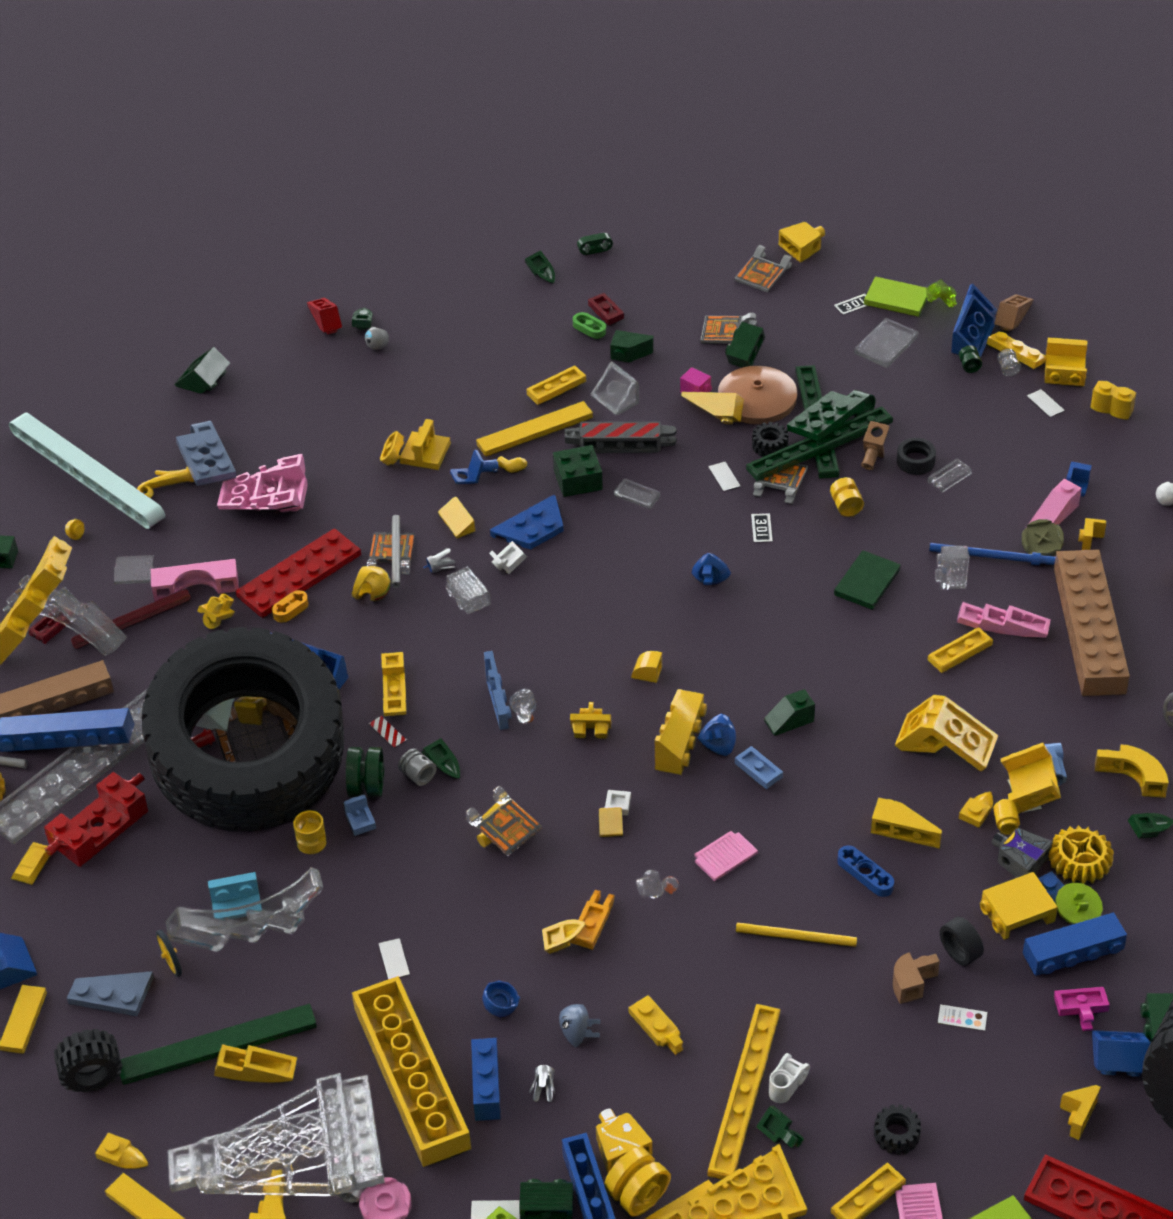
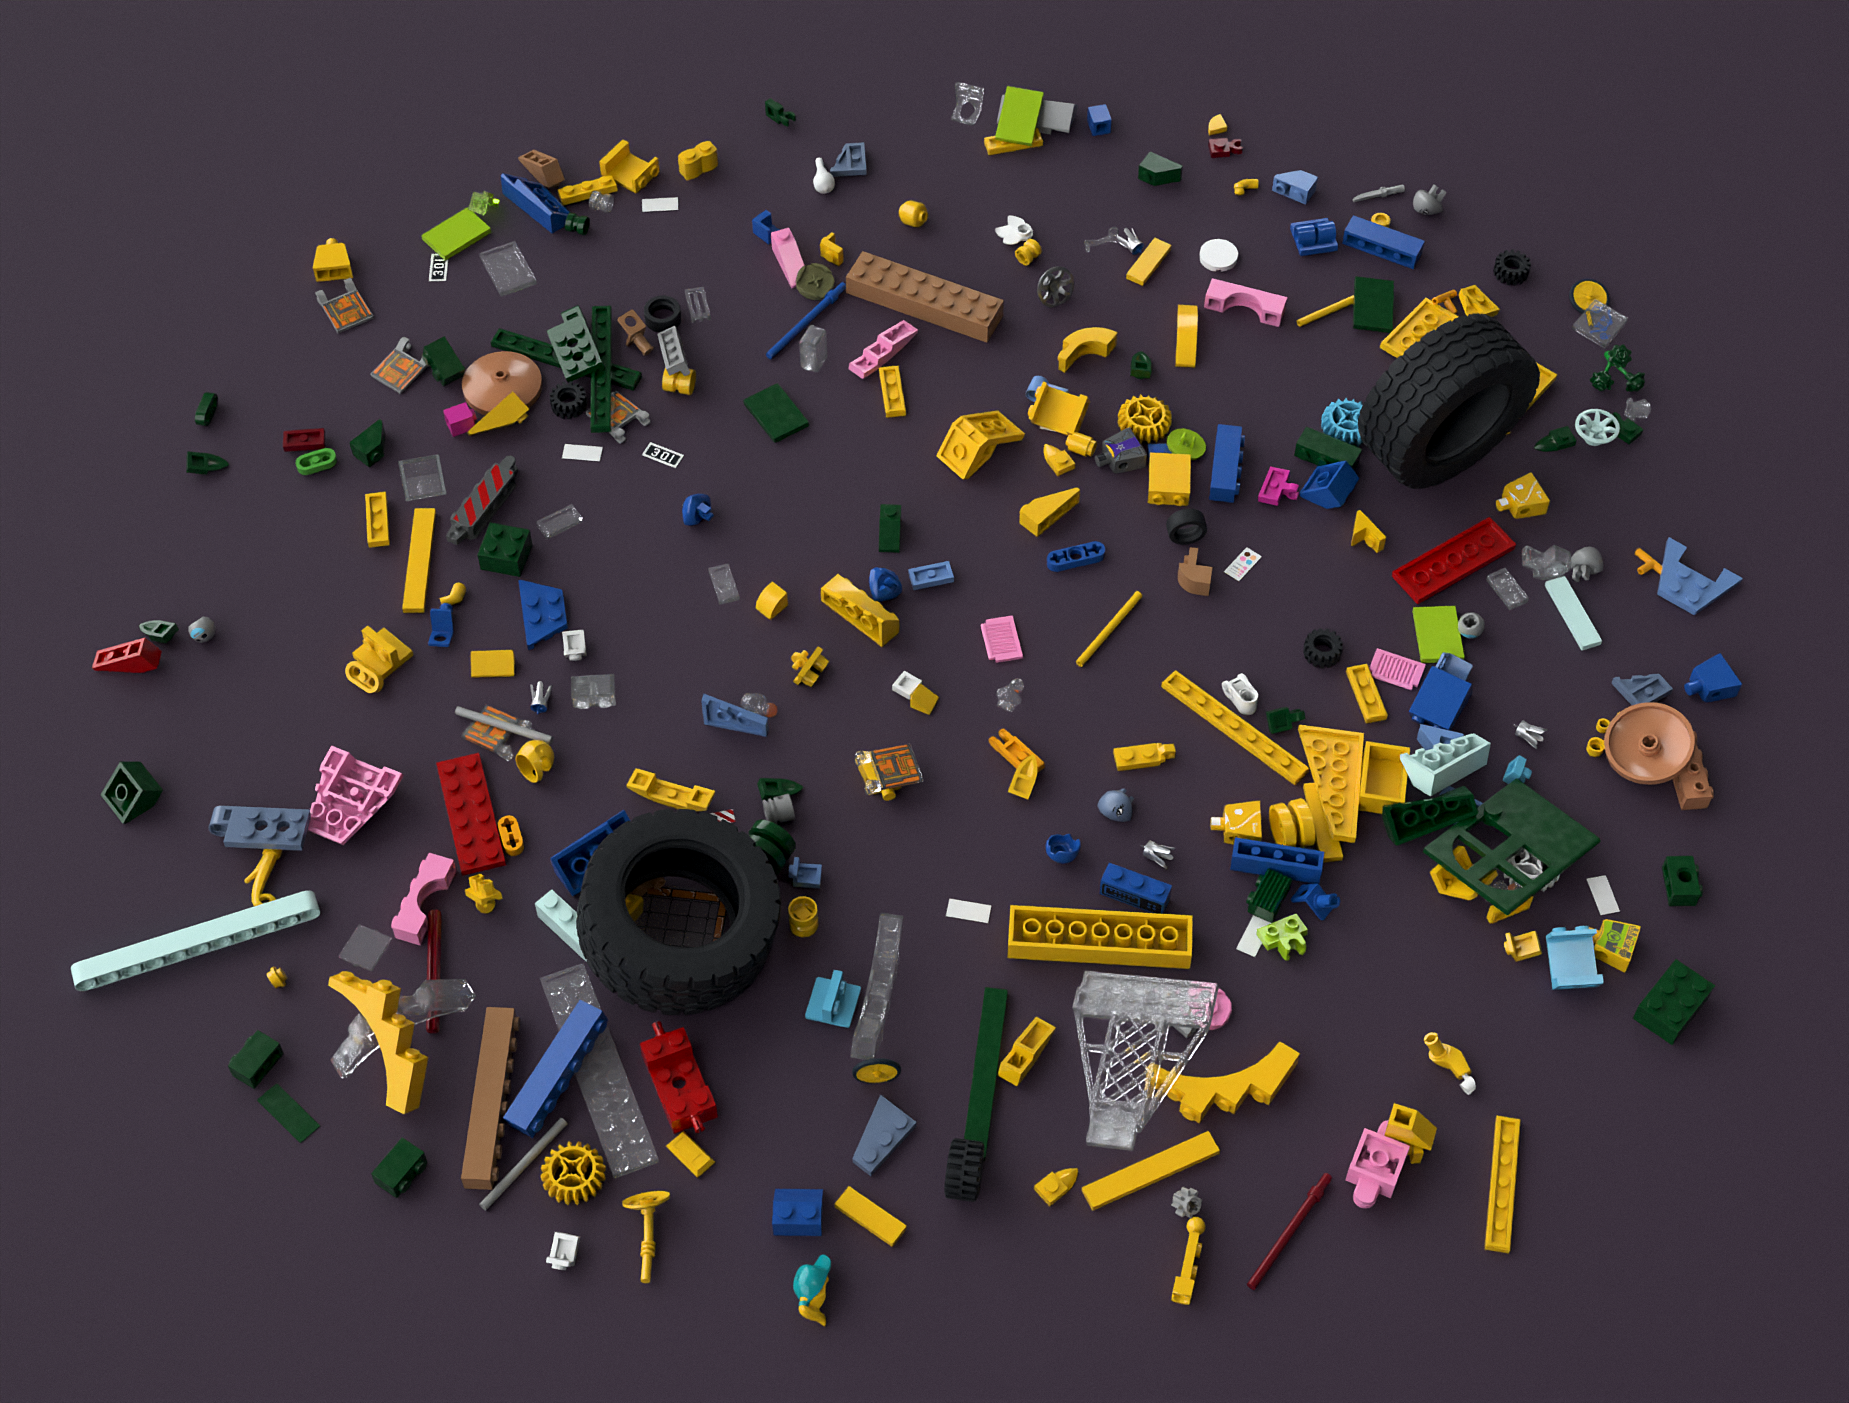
camera: 65 degrees left, 10 degrees up
(643, 626) = (723, 584): none -> clear plate
(870, 474) = (673, 352): none -> light grey hinge

